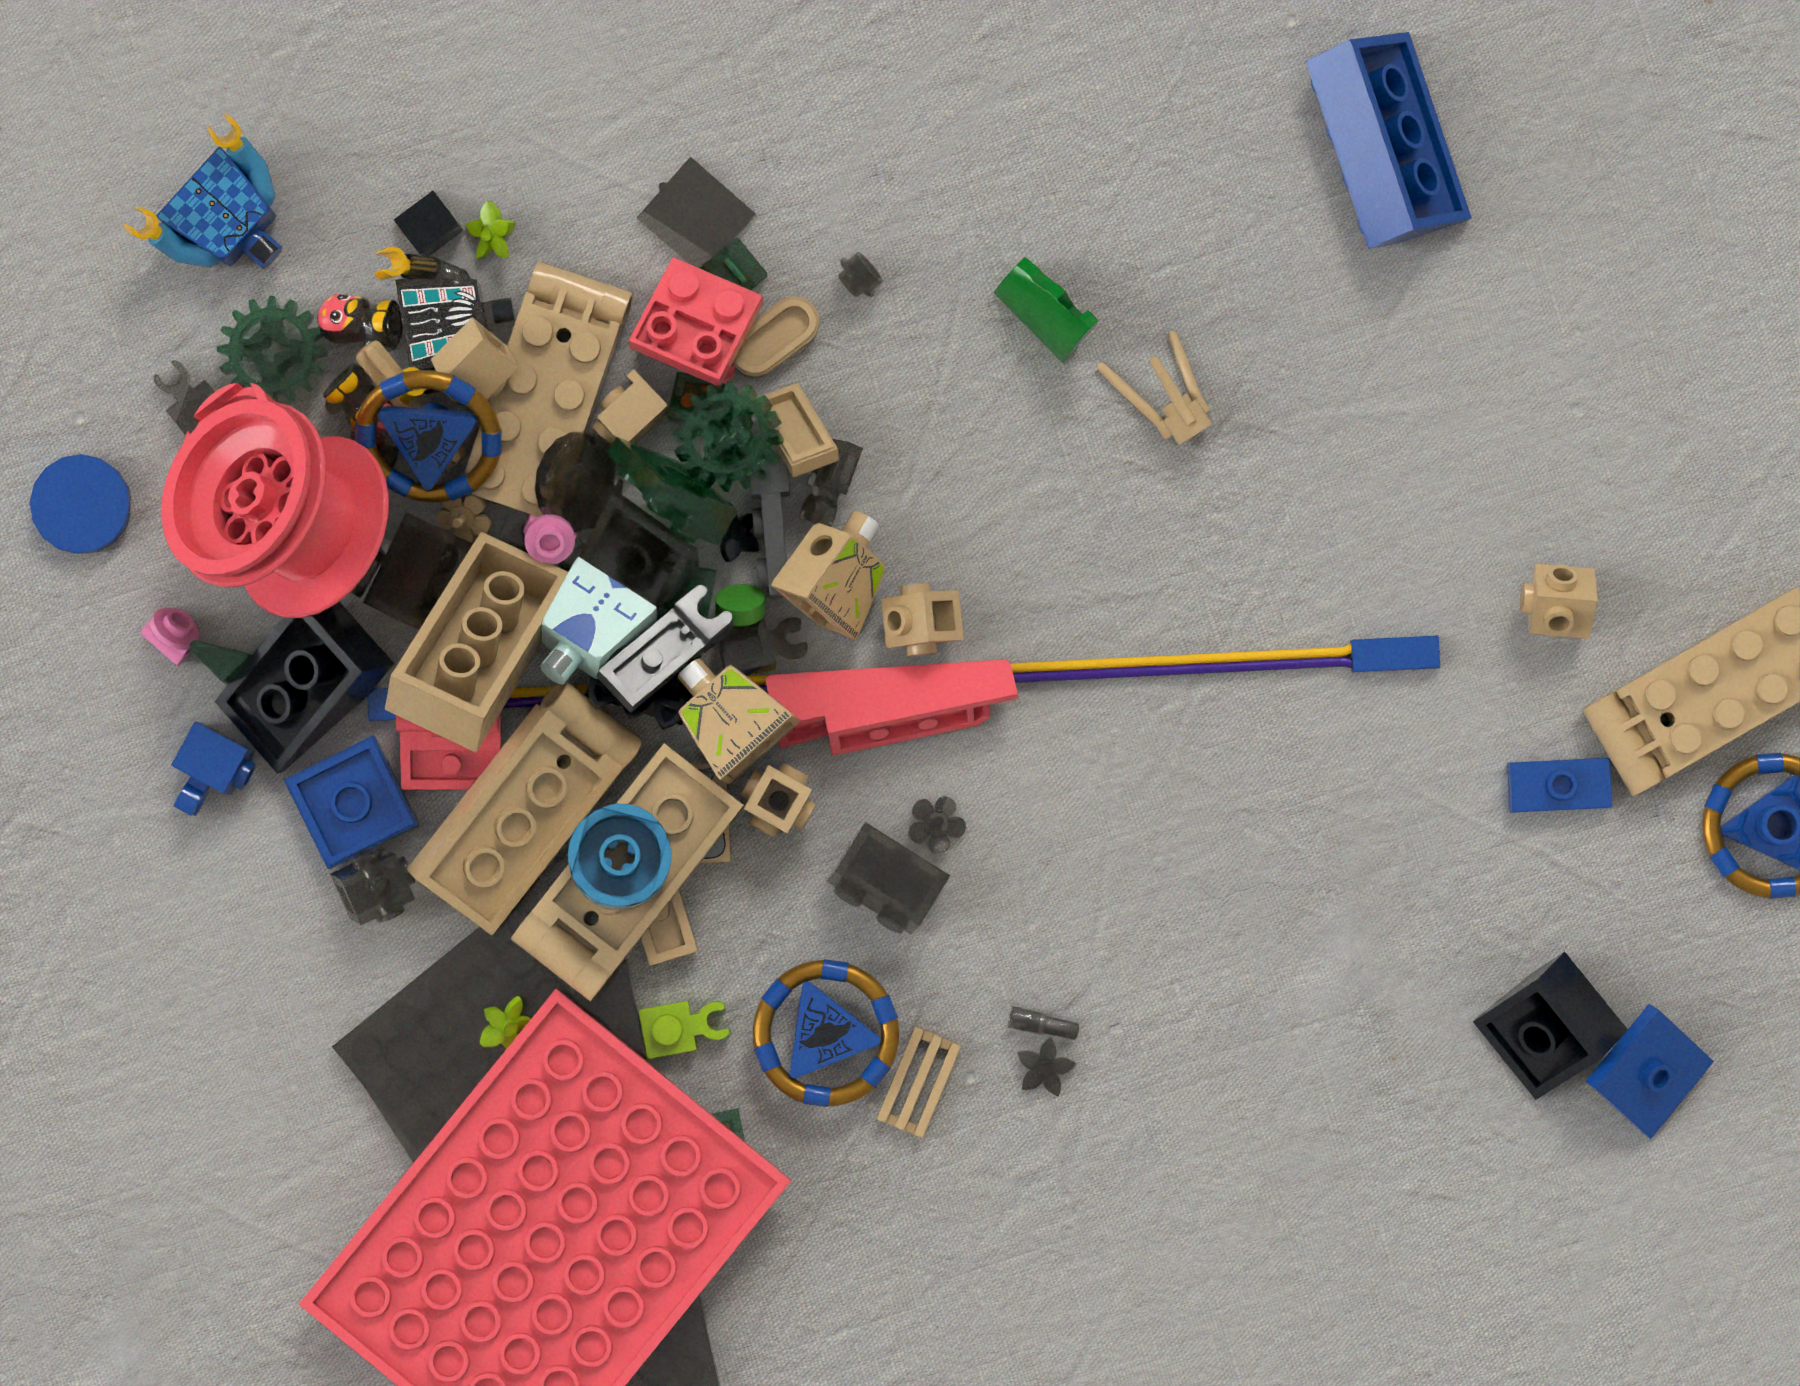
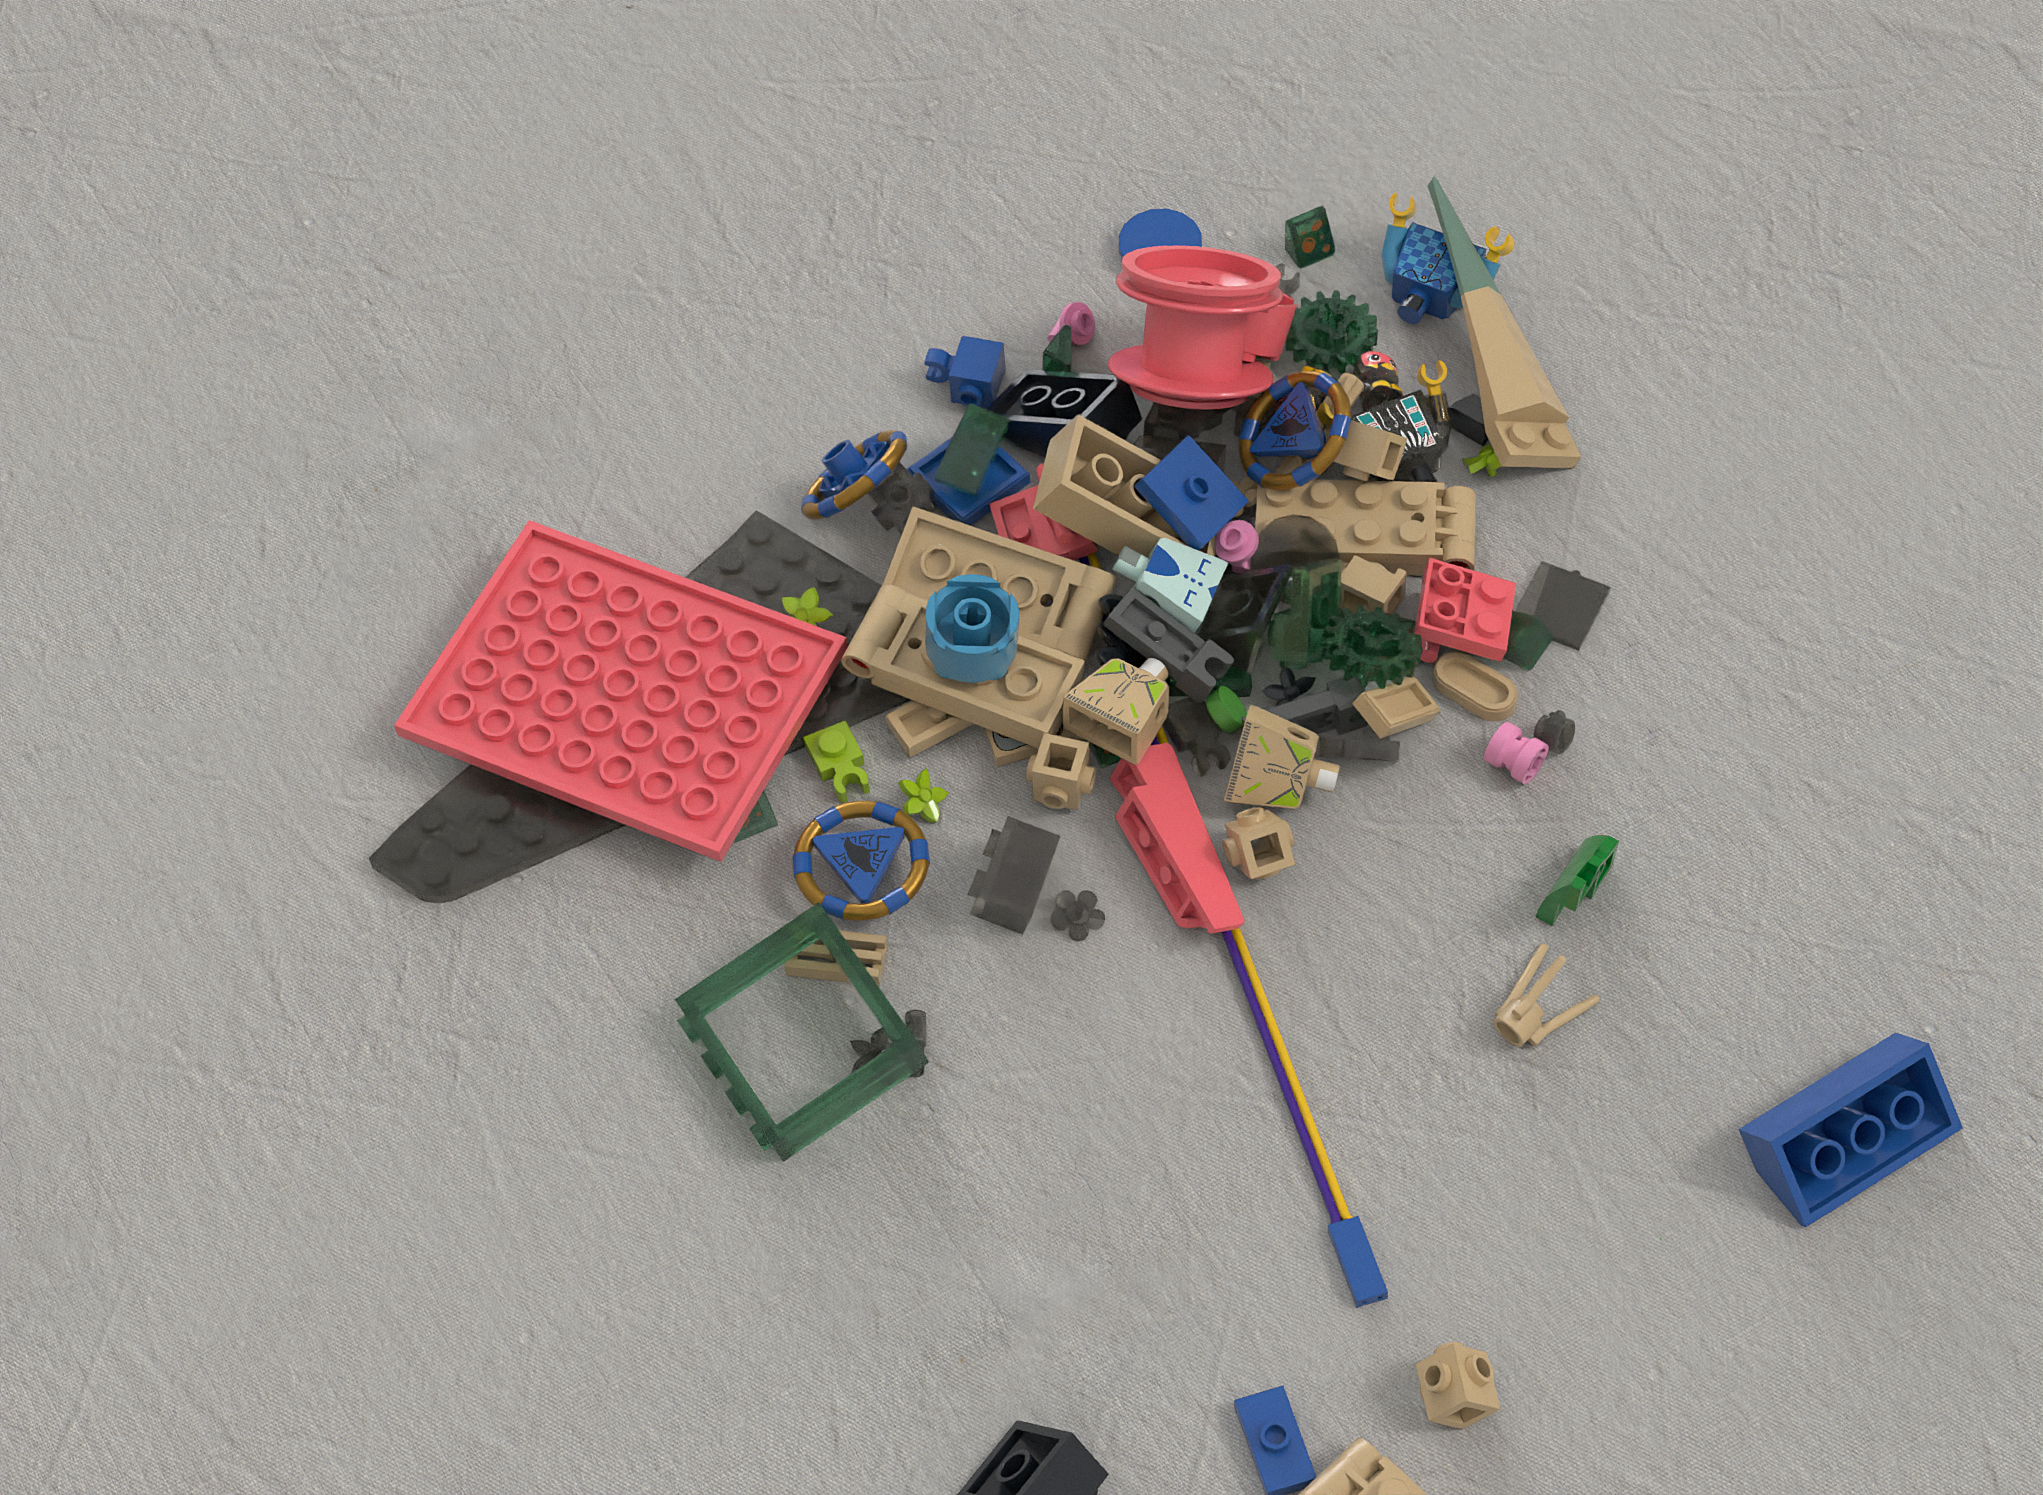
camera: 80 degrees right, 30 degrees down
(127, 334) = (1309, 237): none -> clear green slope
(332, 928) = (853, 473): none -> blue piece
(337, 791) = (972, 450): none -> clear green slope
(423, 176) = (1516, 397): none -> tan plate
(488, 572) = (1191, 493): none -> blue plate
(756, 950) = (922, 797): none -> lime plant
(877, 323) = (1516, 752): none -> bright pink wheel
(989, 1065) = (843, 1098): none -> clear green window

